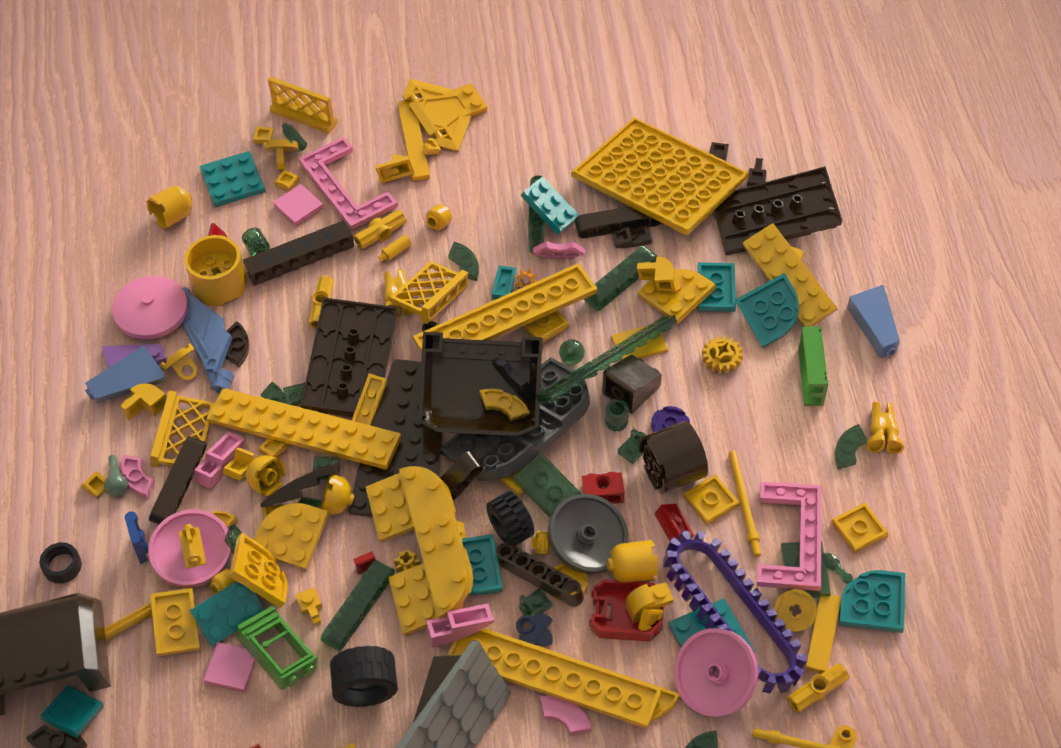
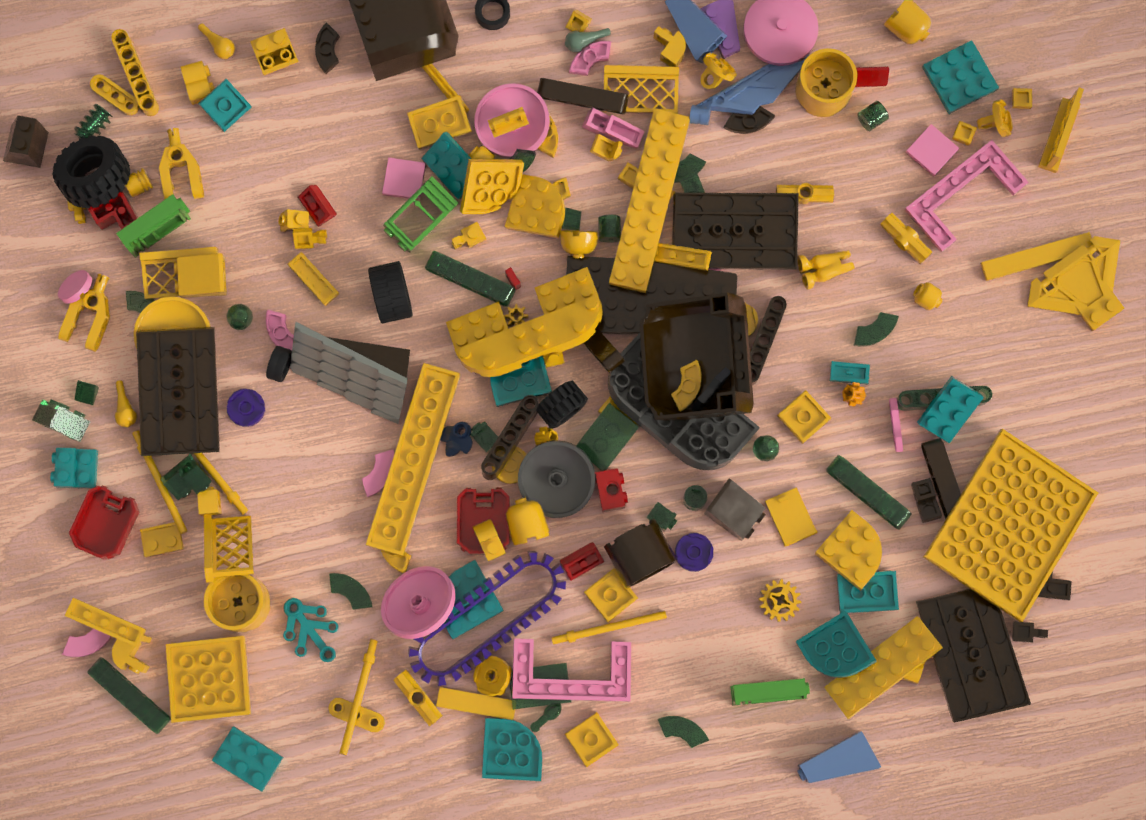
camera: 85 degrees right, 25 degrees up
(71, 711) = (349, 55): teal tile -> none
(137, 536) = (513, 73): blue plate -> none
(265, 474) = (594, 172): yellow cylinder -> none
(292, 134) = (1024, 130): clear green cylinder -> none
(293, 489) = (582, 203): dark brown slope -> none
(298, 253) = (865, 161): dark brown brick -> none
(395, 248) = (883, 256): yellow cylinder -> none
(397, 168) = (986, 241): yellow slope -> none
(431, 147) = (1026, 276): yellow tile -> none
(441, 296) = (821, 313): yellow fence -> none
(458, 624) = (451, 369): bright pink slope -> none
(518, 307) = (802, 381): yellow plate -> none
(604, 360) = (747, 482): clear green plate -> none
(649, 617) = (472, 540): yellow tile -> none
(660, 271) = (866, 534): yellow brick -> none
(882, 424) = (708, 765): yellow piece -> none

